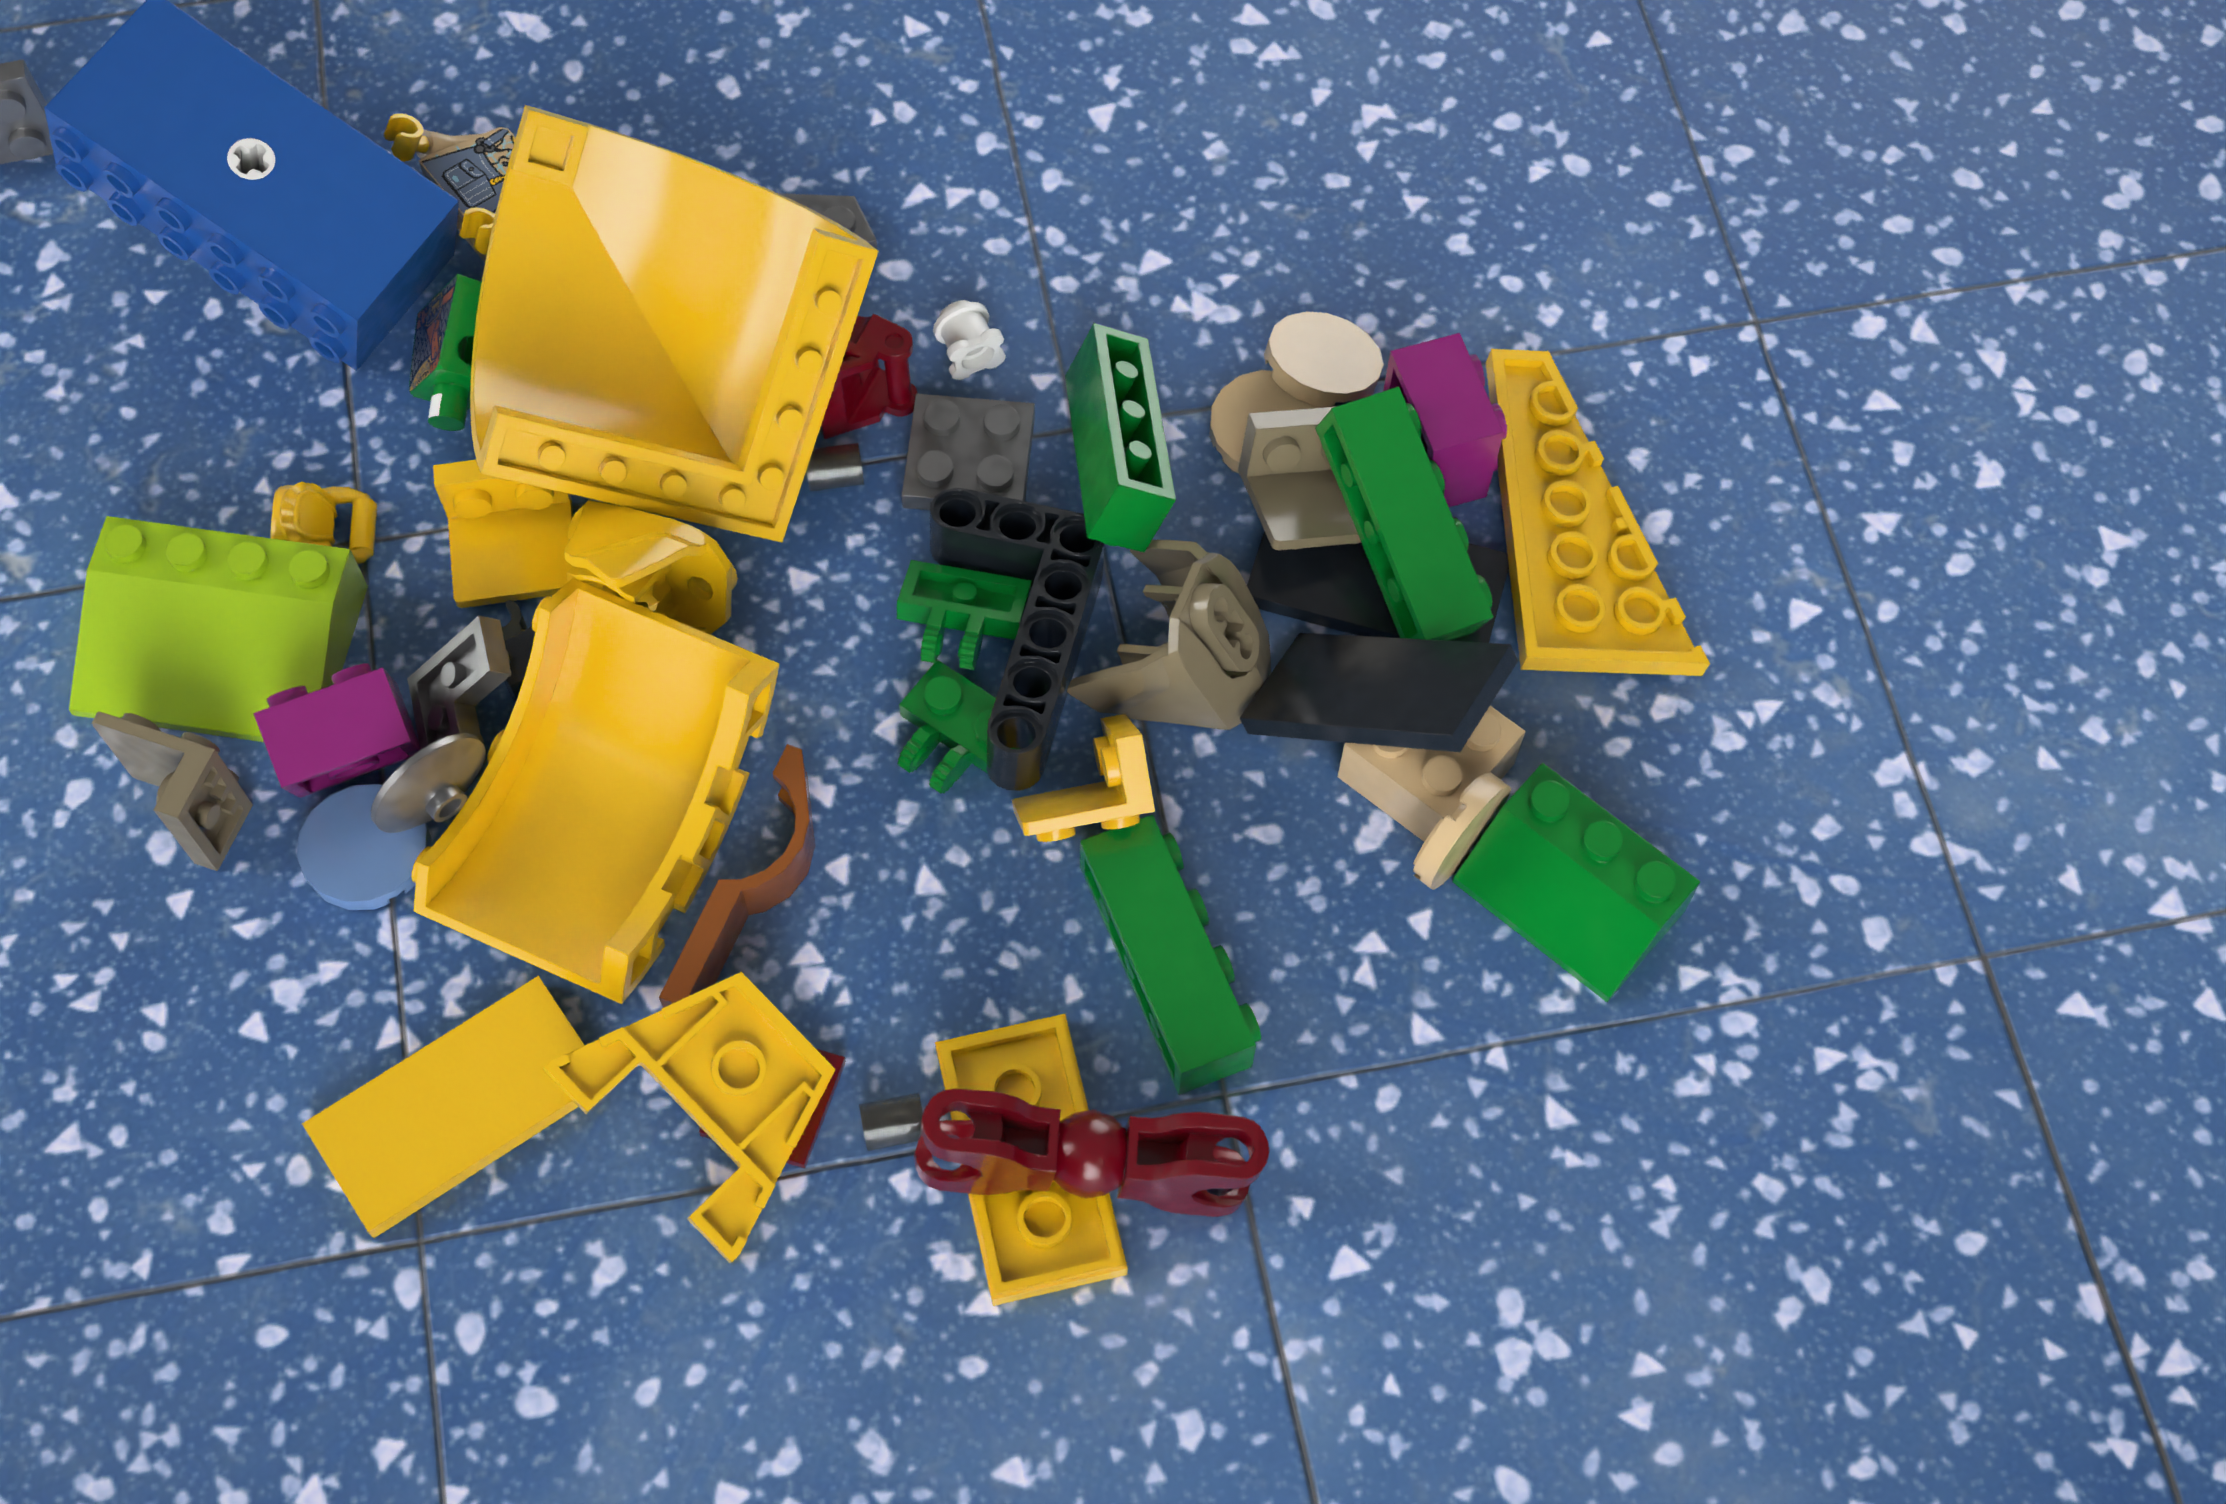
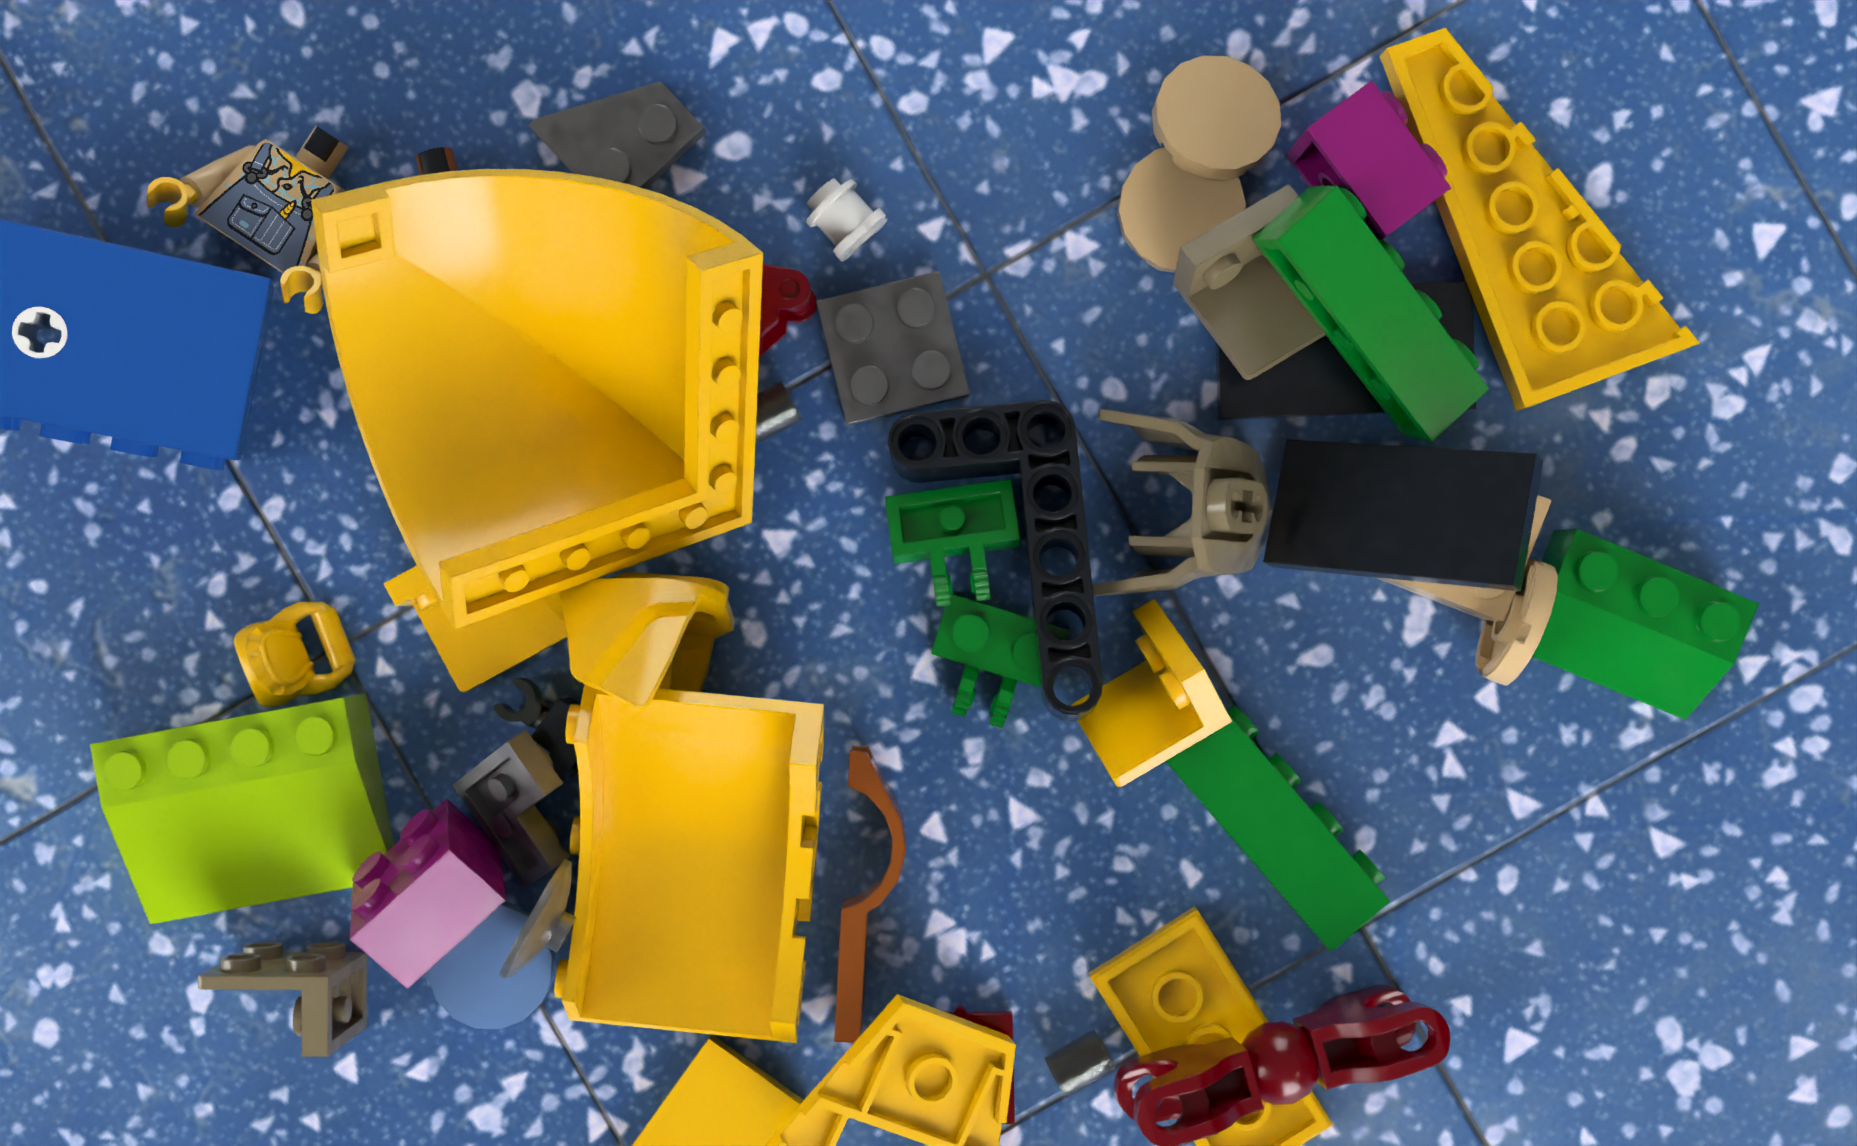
camera: 20 degrees left, 25 degrees up
(444, 353) = (331, 440): green torso -> none
(1119, 439) = (1051, 307): green brick -> none

